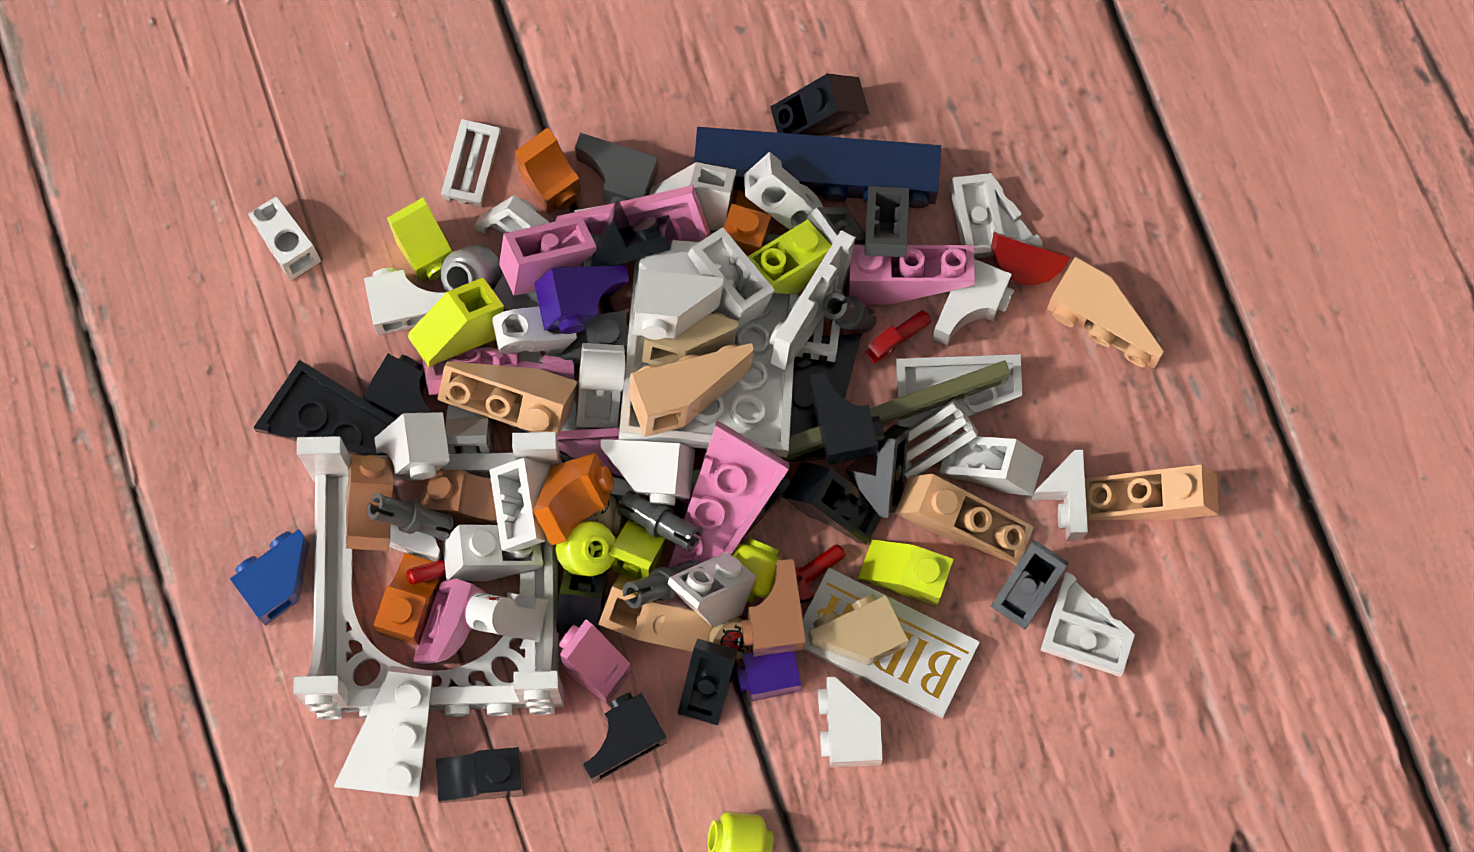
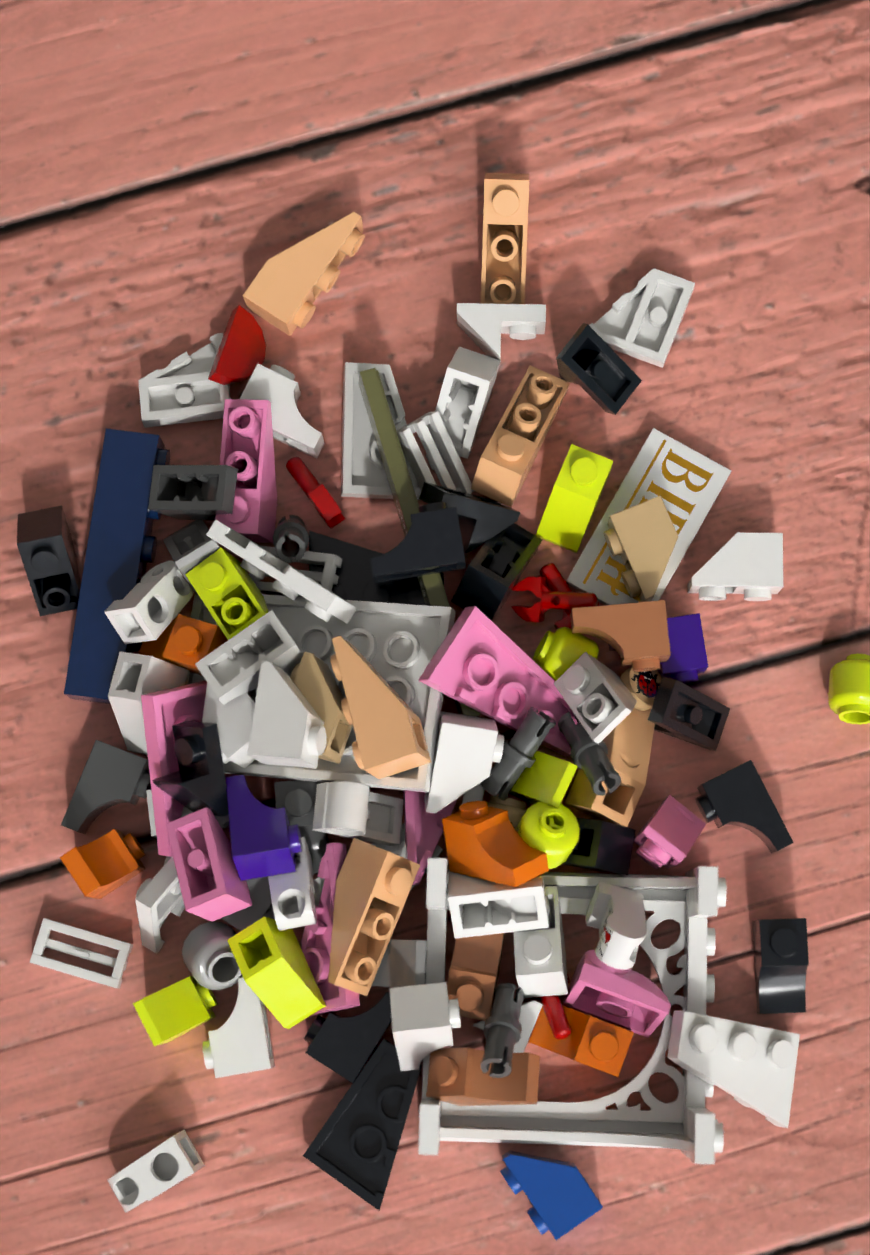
camera: 80 degrees left, 5 degrees up
(809, 552) = (549, 599): none -> red bar

